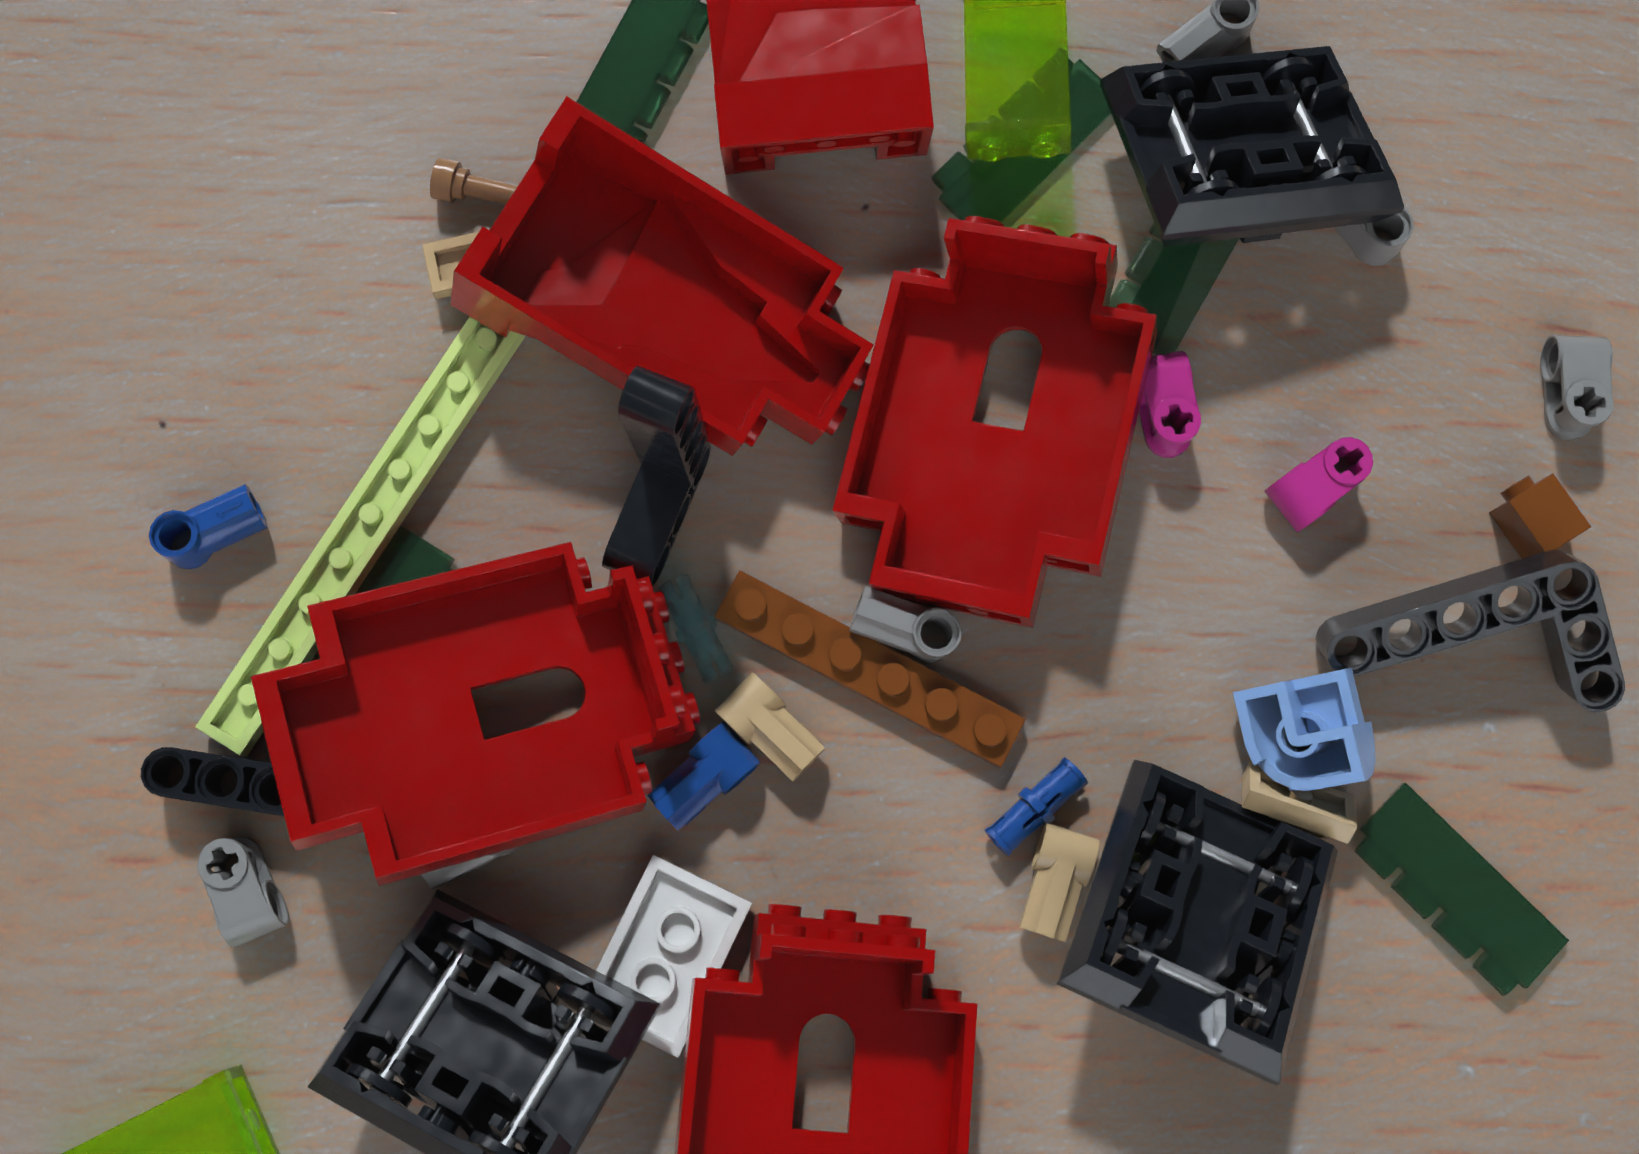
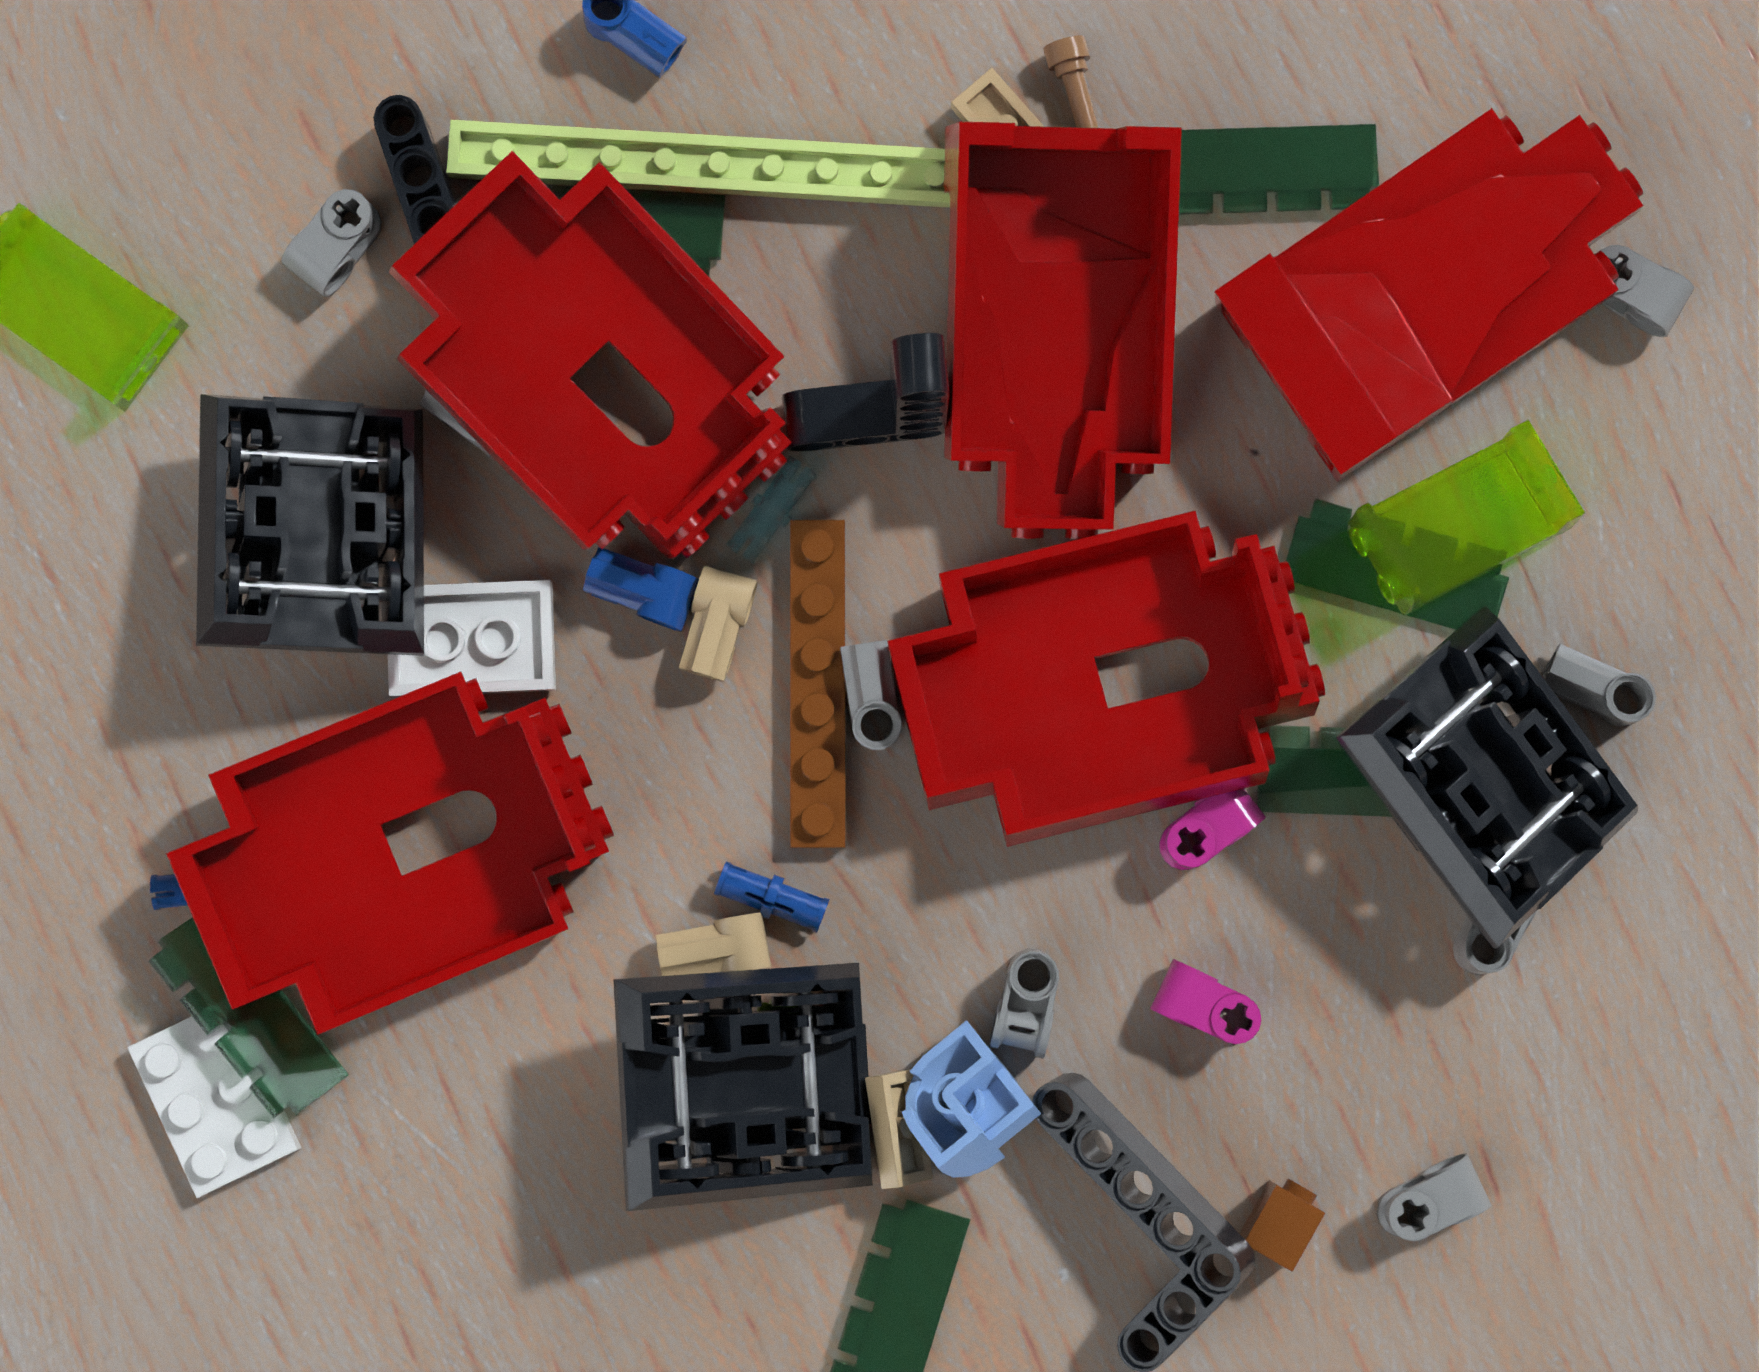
camera: 60 degrees right, 5 degrees up
(1251, 639) = (1026, 1007): none -> light grey piece

